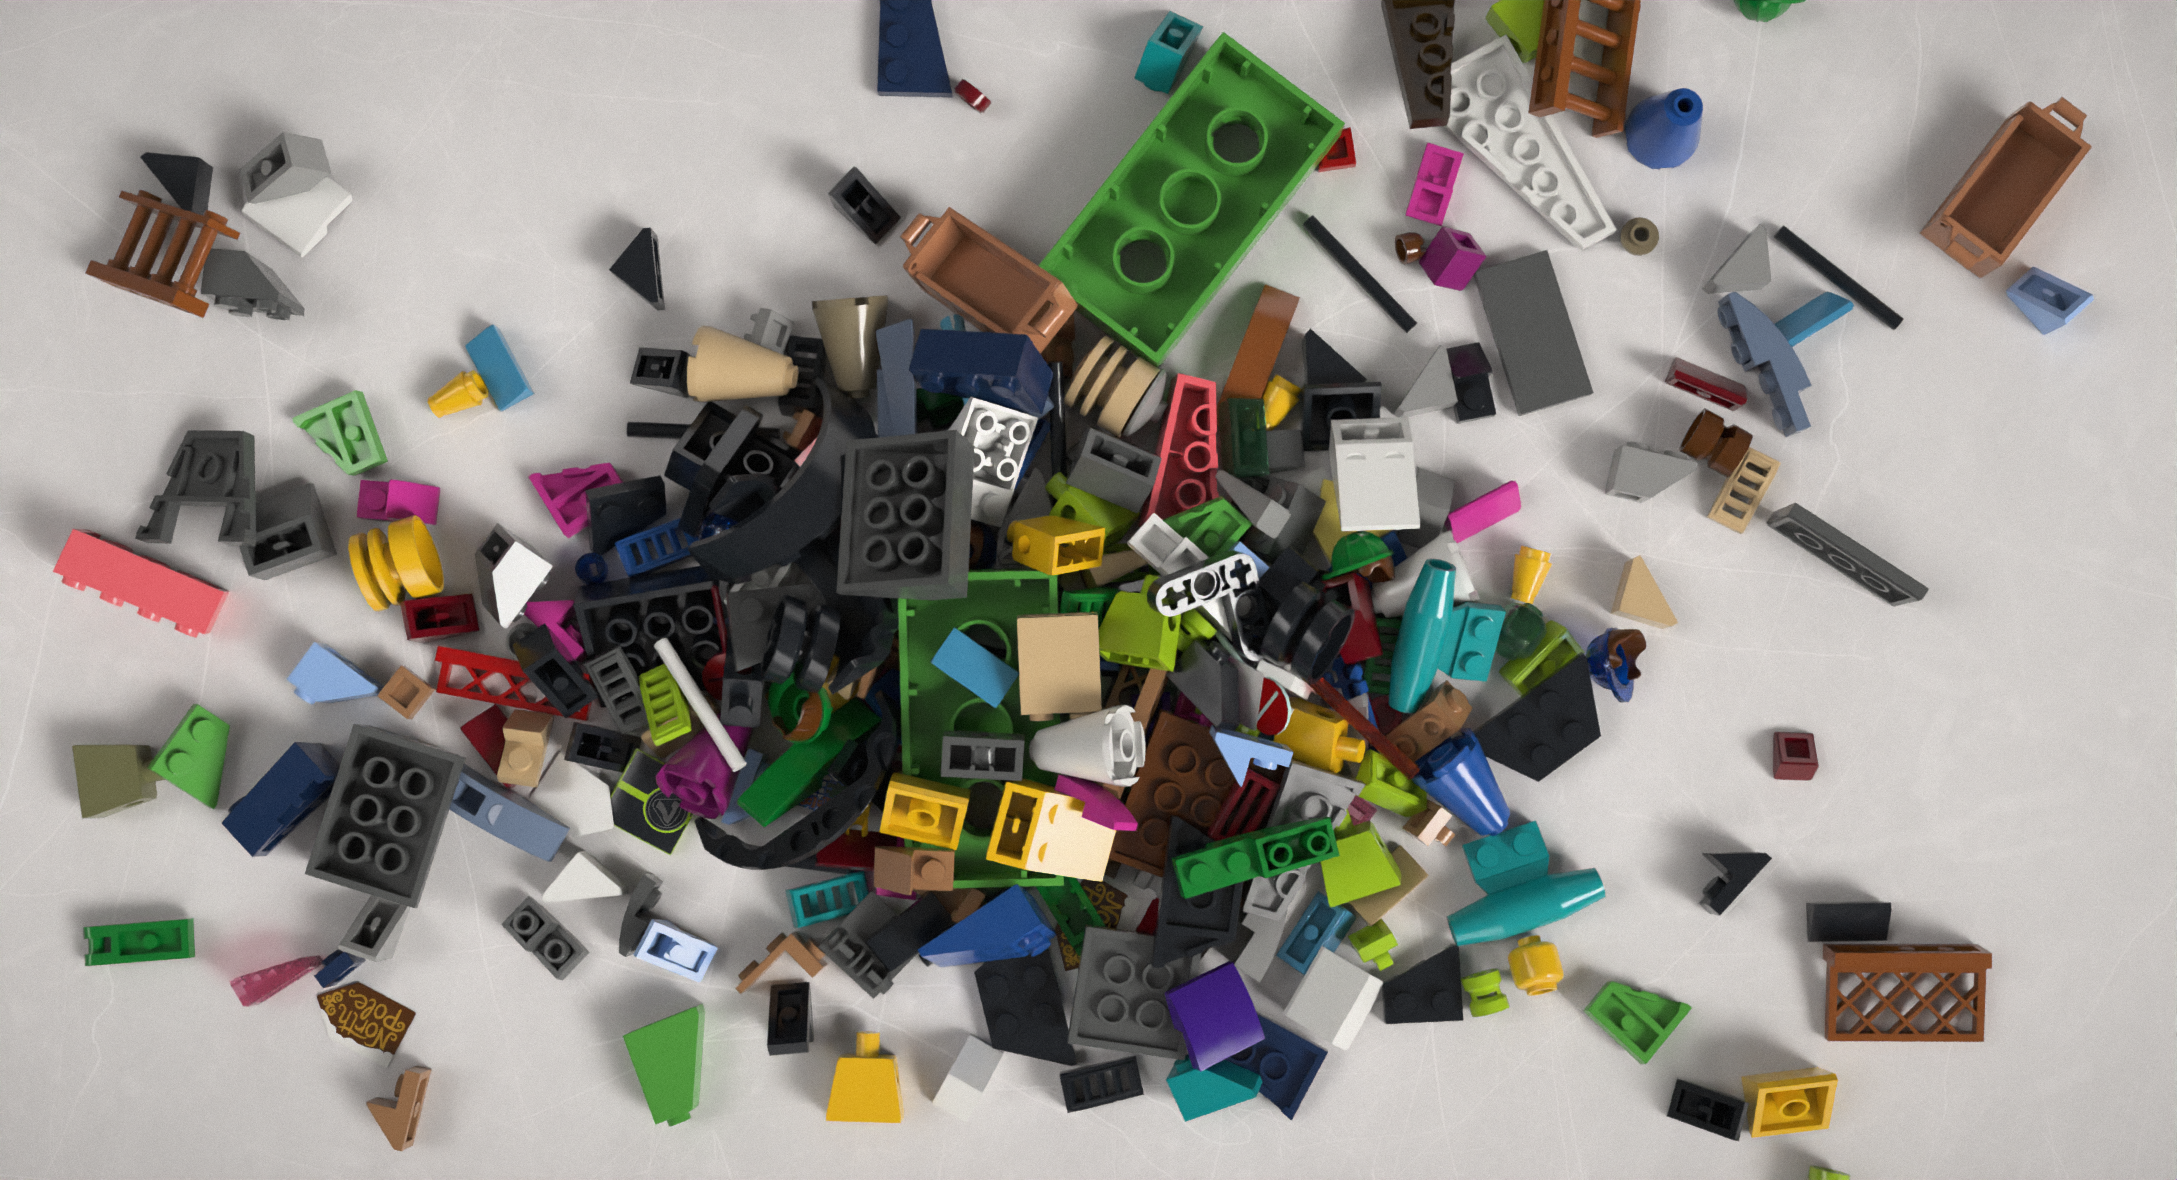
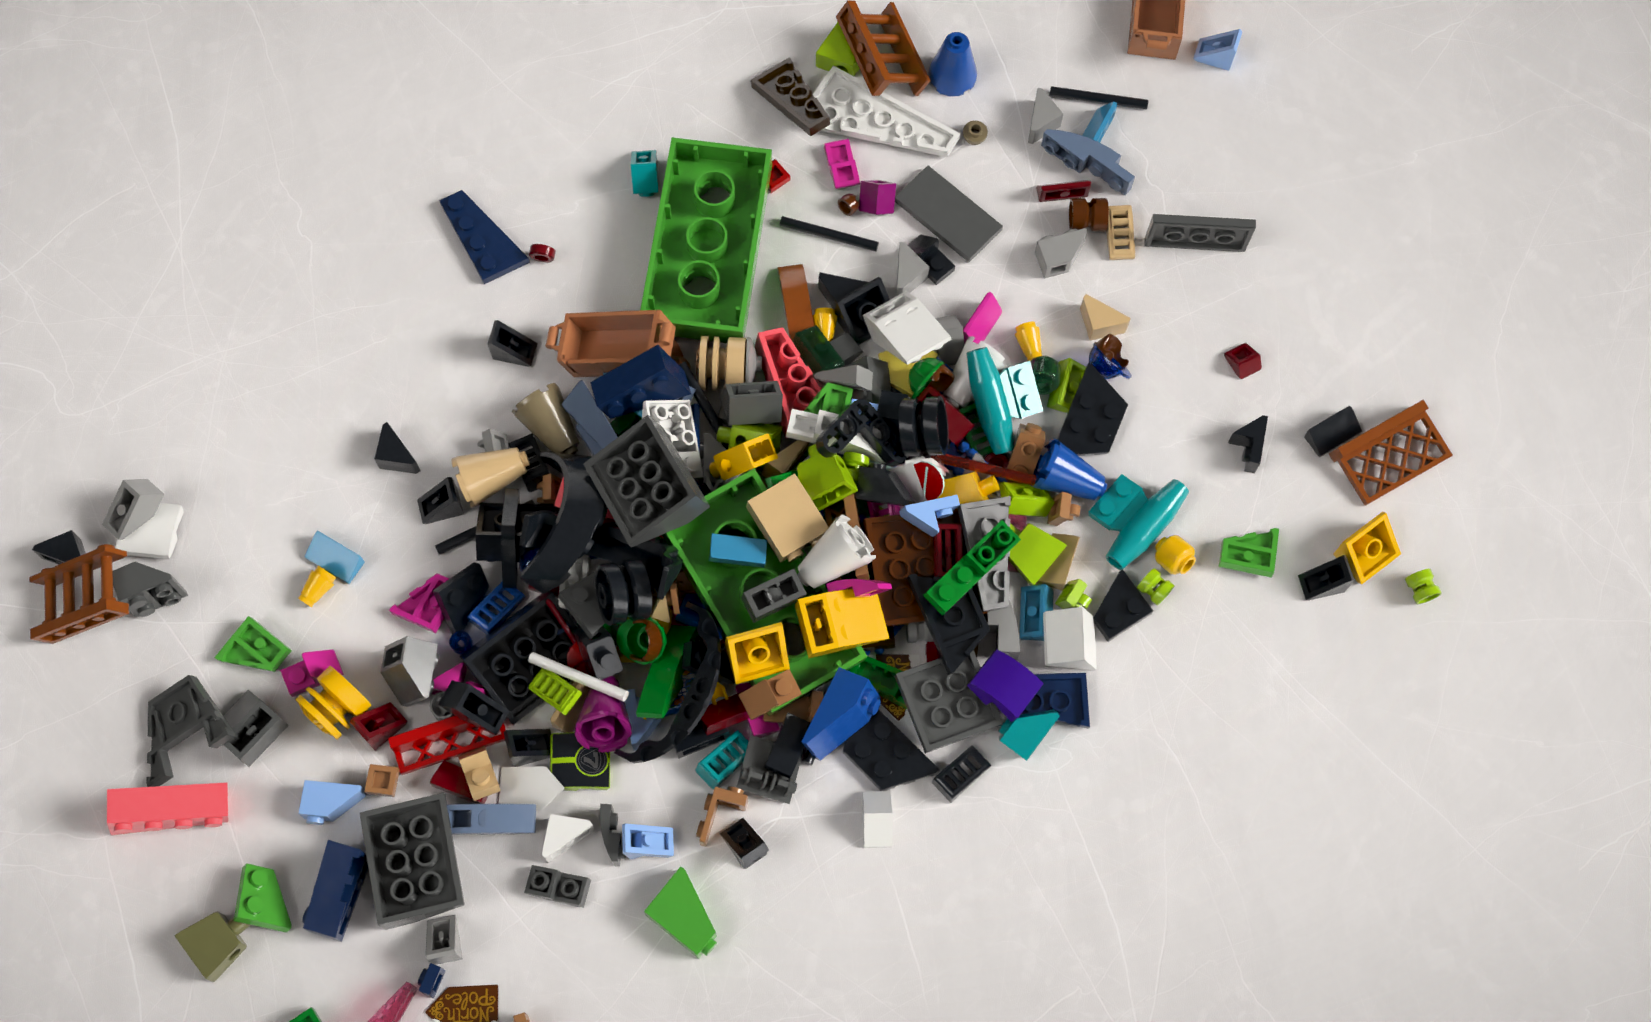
camera: 35 degrees left, 15 degrees down
(625, 721) = (539, 716): dark grey slope -> none
(866, 1085) = (817, 856): yellow torso -> none

